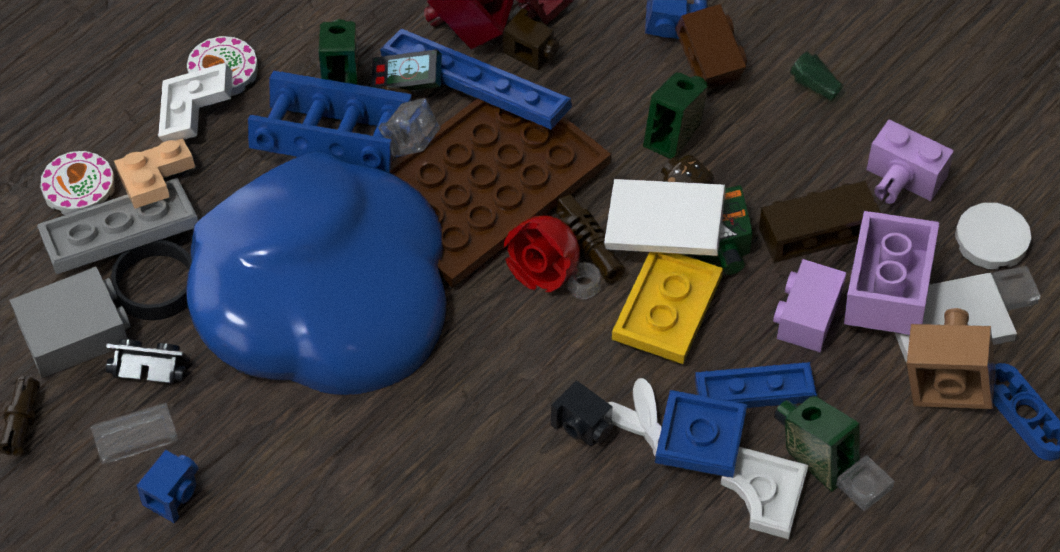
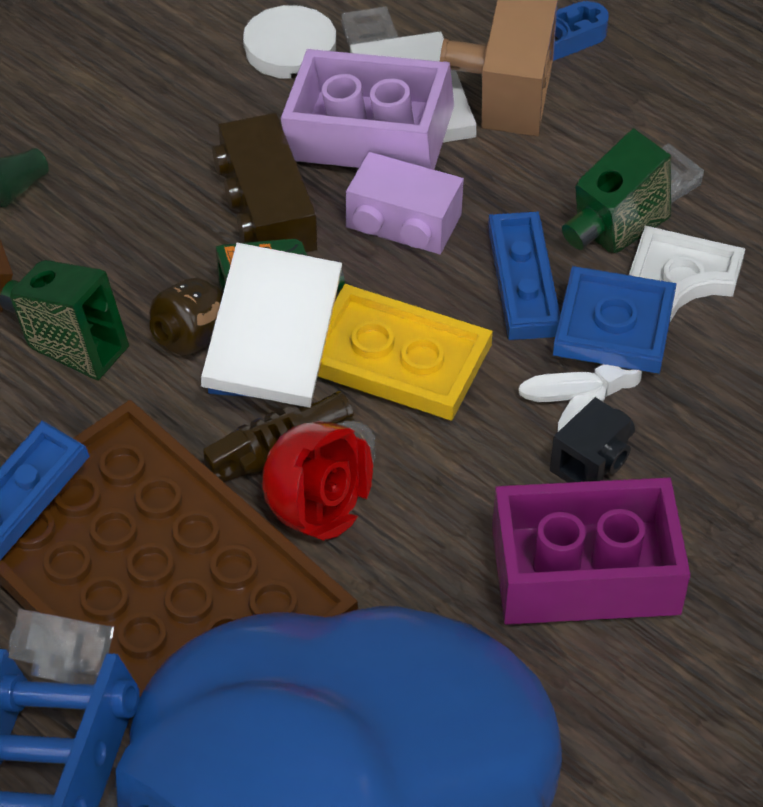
camera: 90 degrees left, 5 degrees down
(486, 401) = (589, 550): none -> magenta brick
(907, 162) = (177, 93): lavender brick -> none

